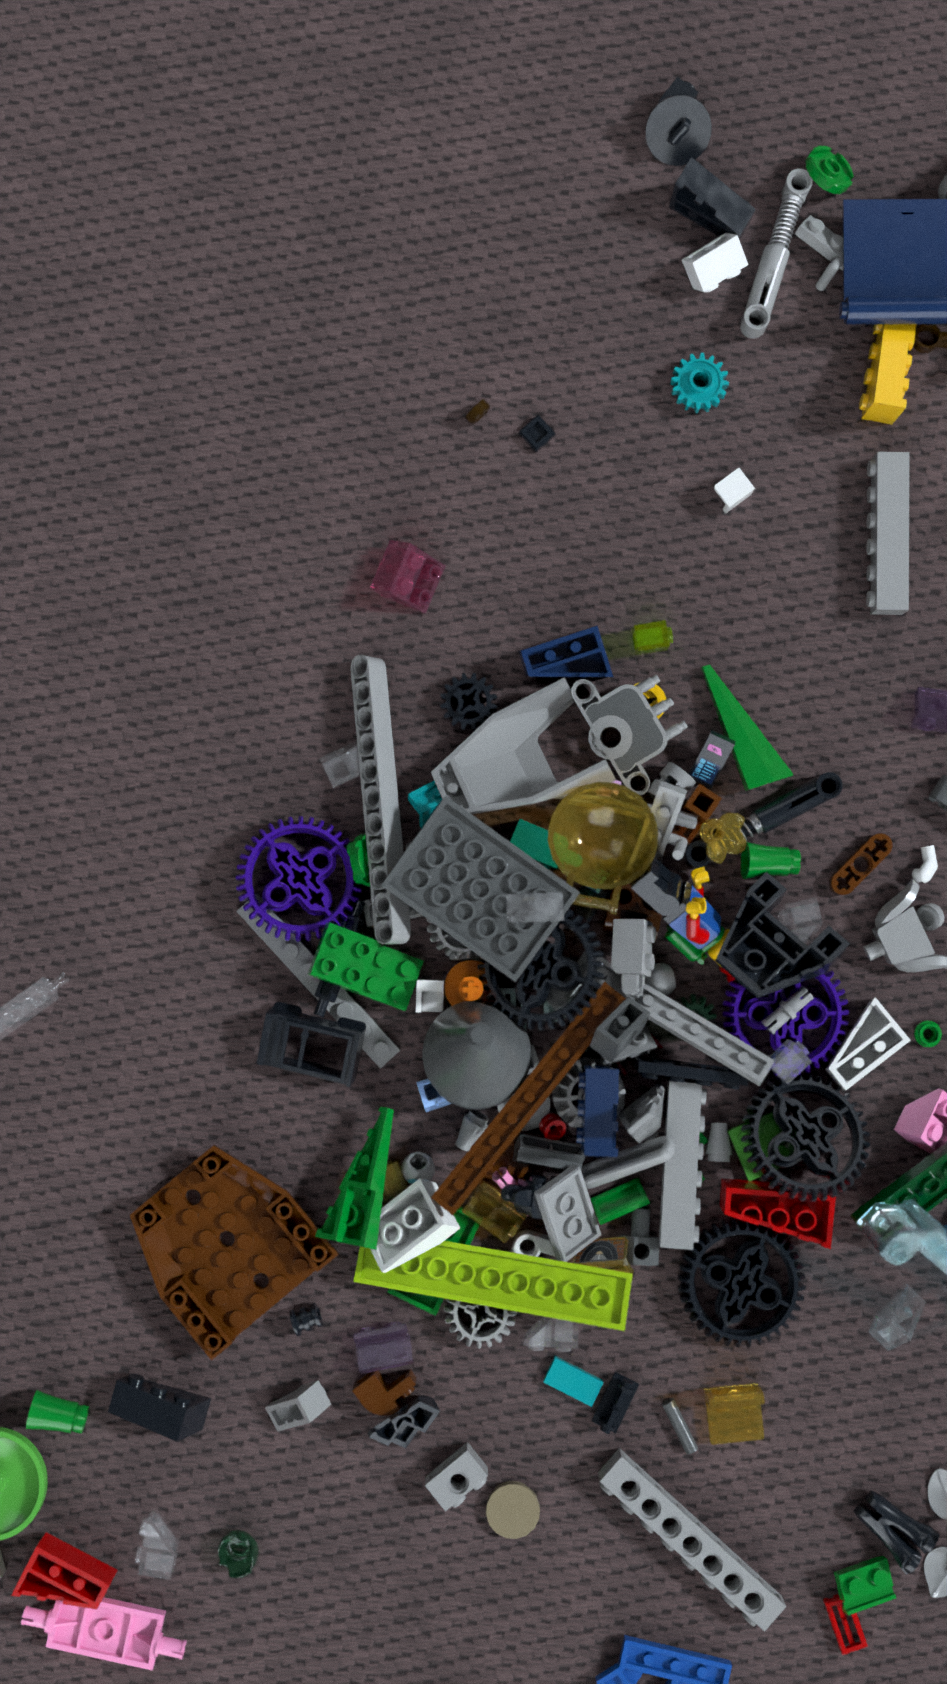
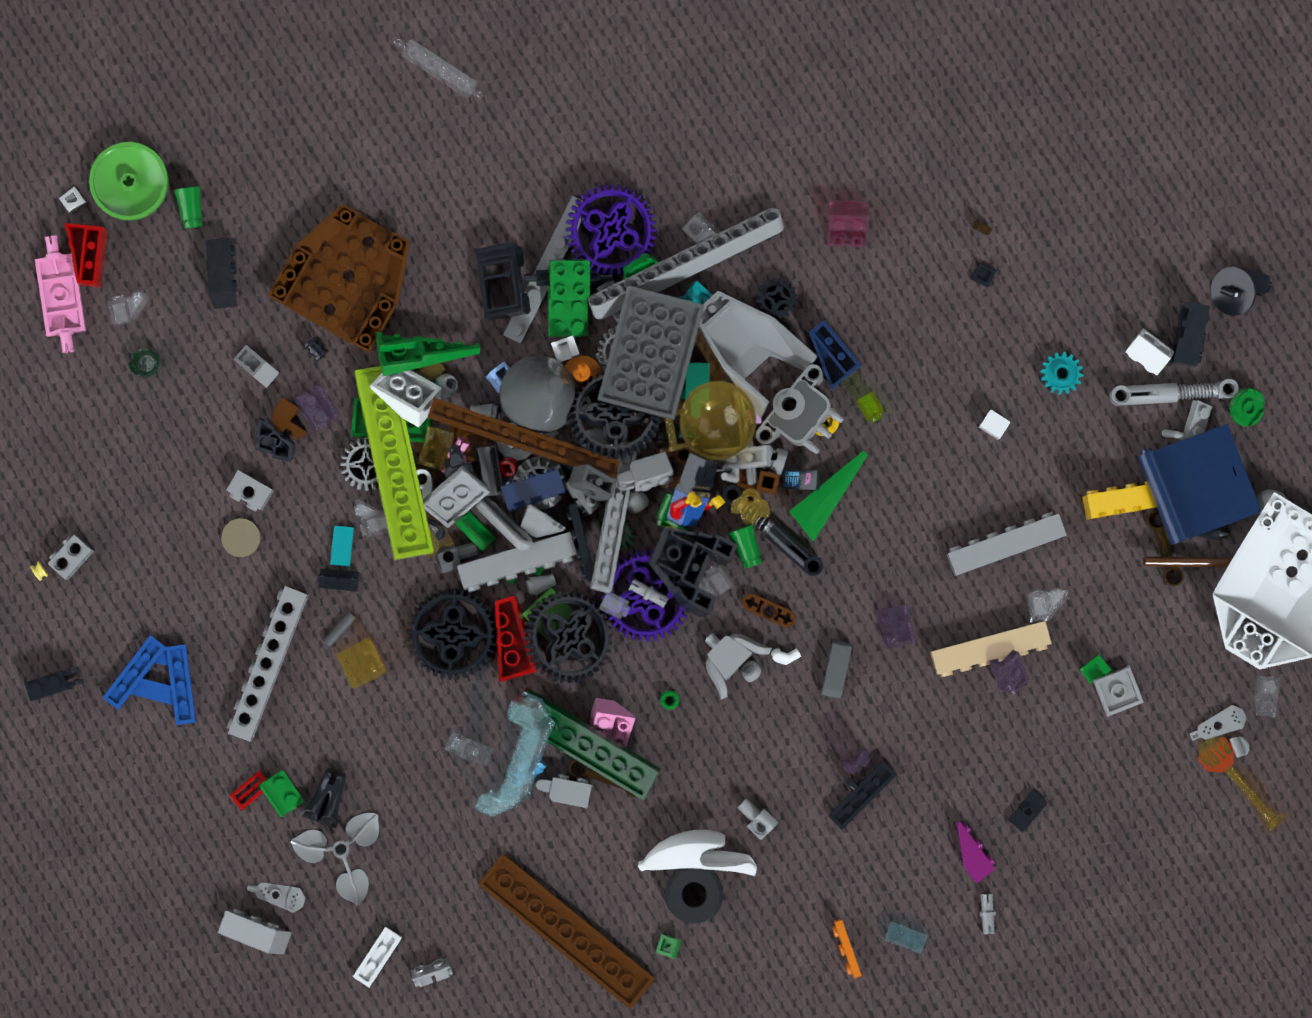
camera: 65 degrees right, 0 degrees up
(535, 907) = (652, 392): clear slope -> none
(866, 1045) = (644, 658): white wedge -> none

